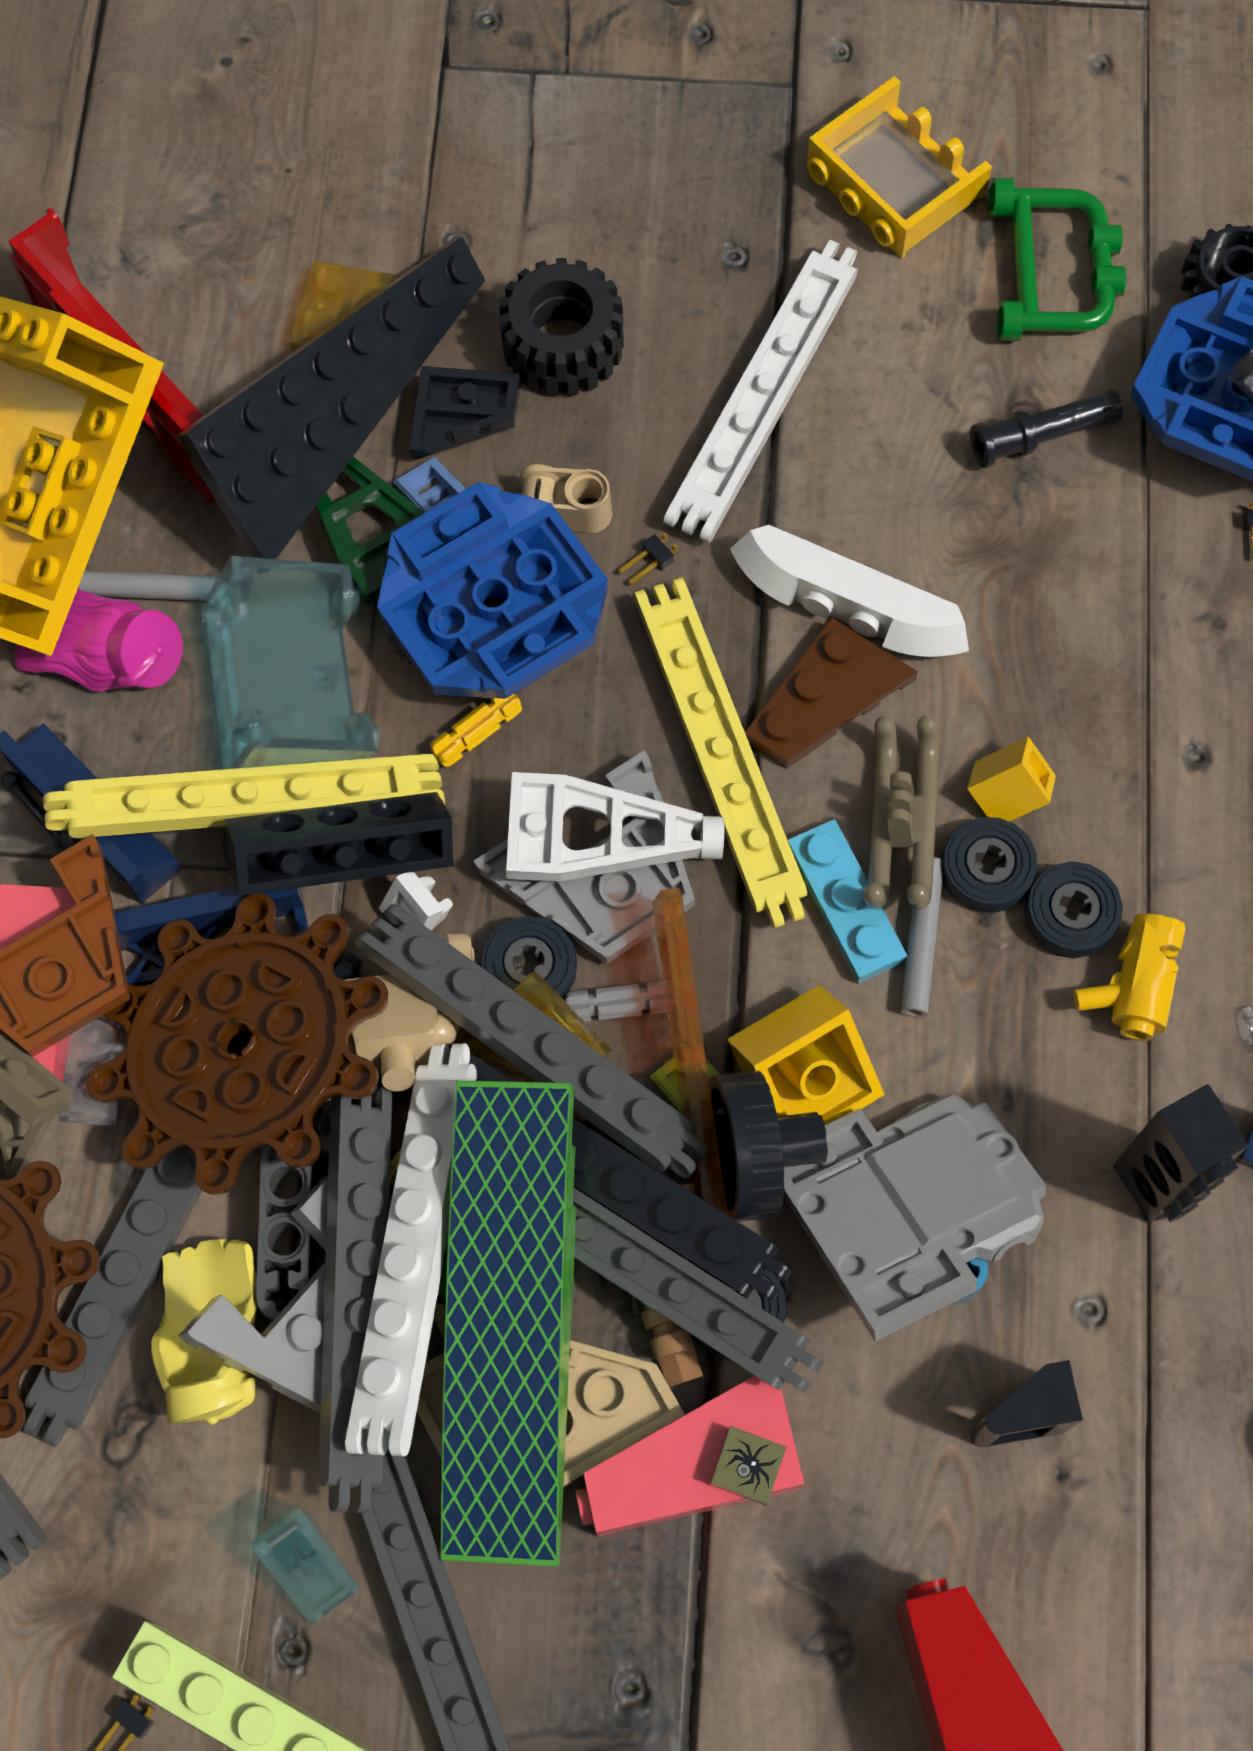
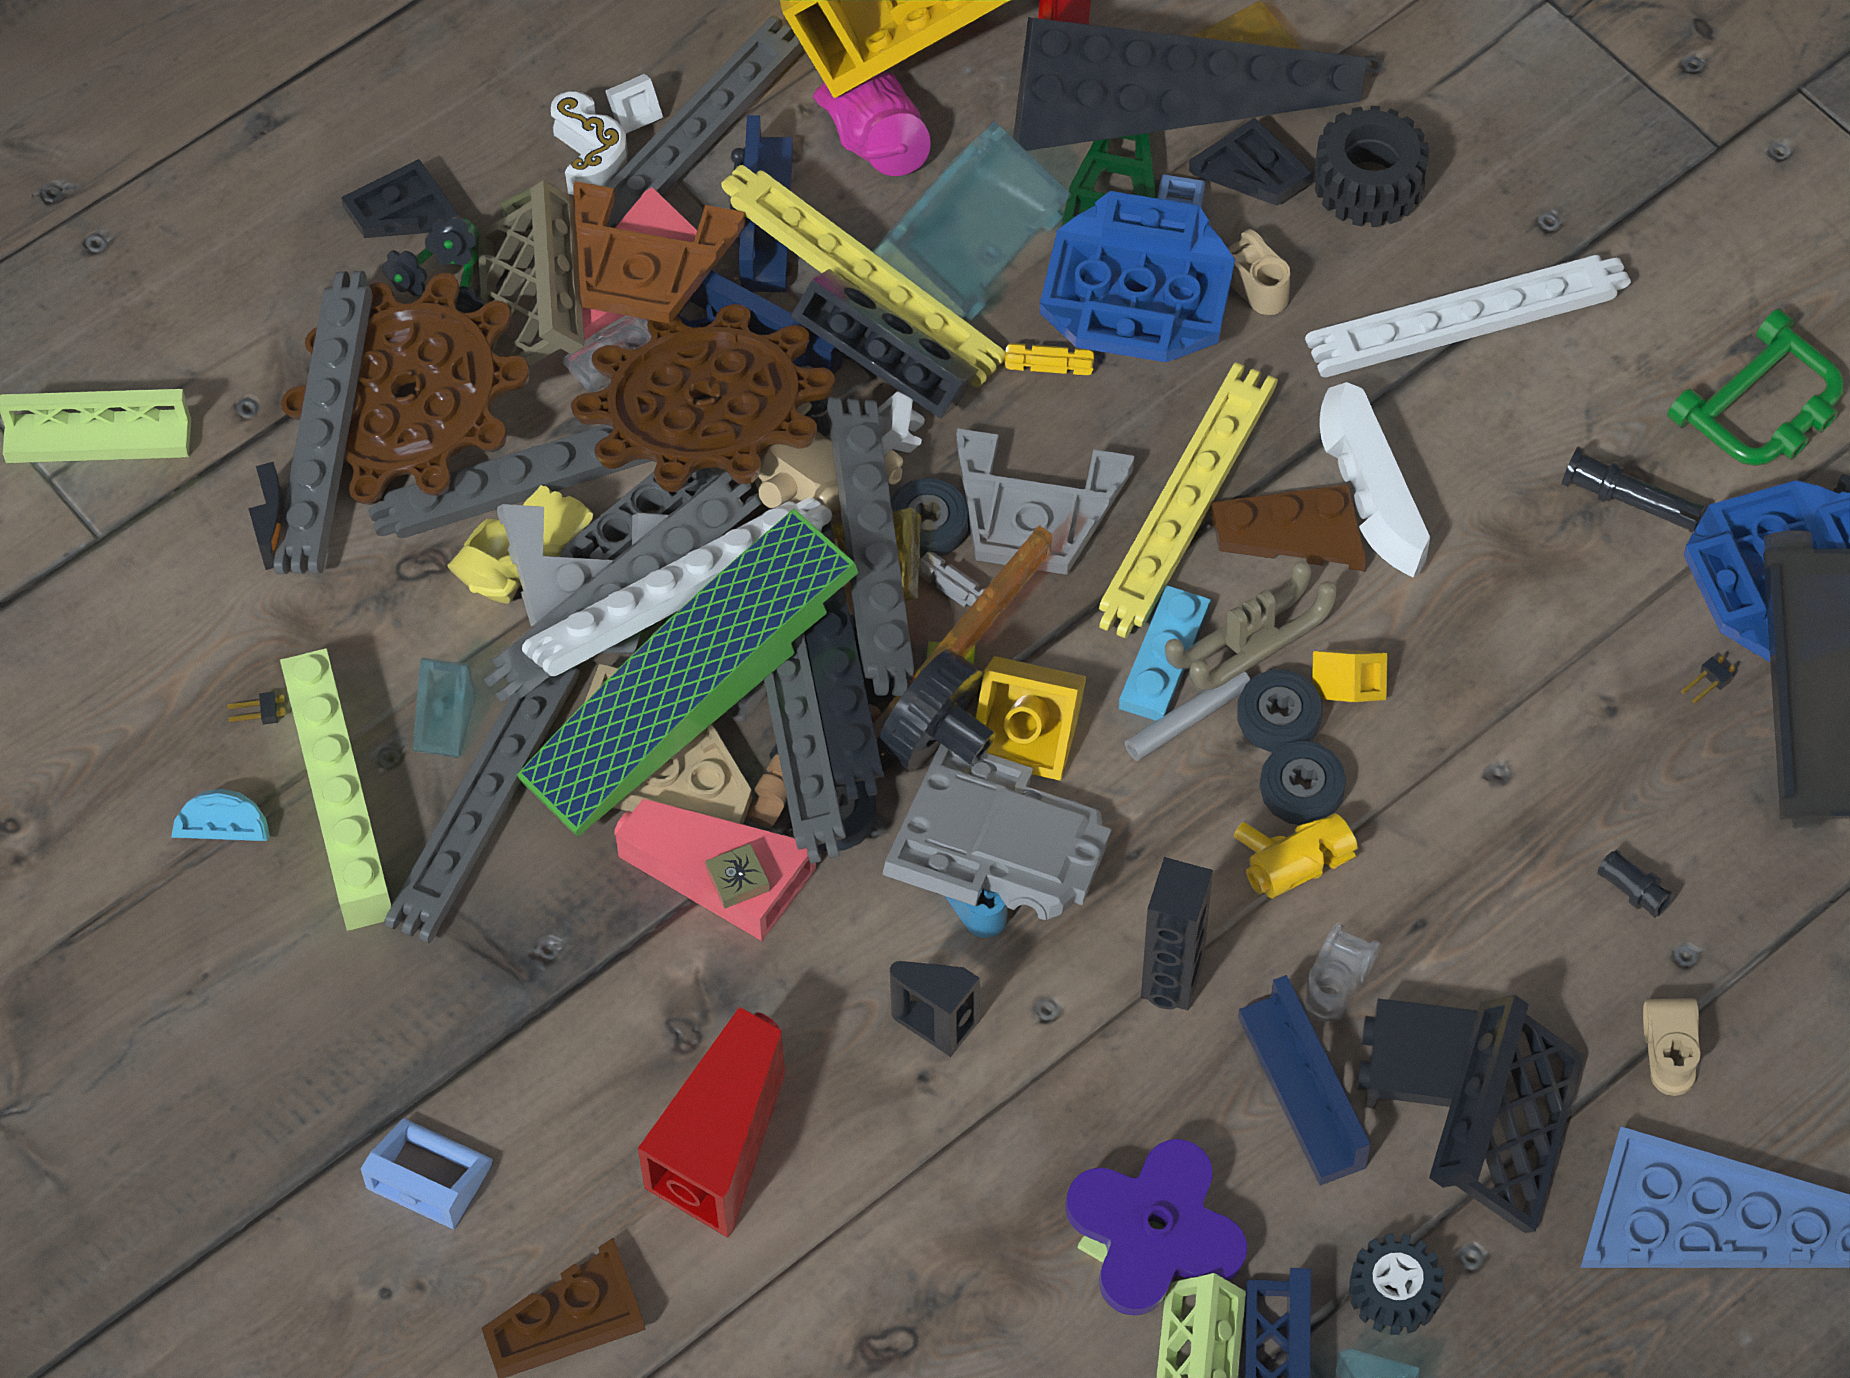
camera: 45 degrees right, 10 degrees down
(147, 585) = (937, 107): light grey piece -> none
(536, 829) = (1019, 434): white plate -> none
(657, 552) = (1283, 357): piece -> none
(892, 169) = (1719, 249): yellow window -> none

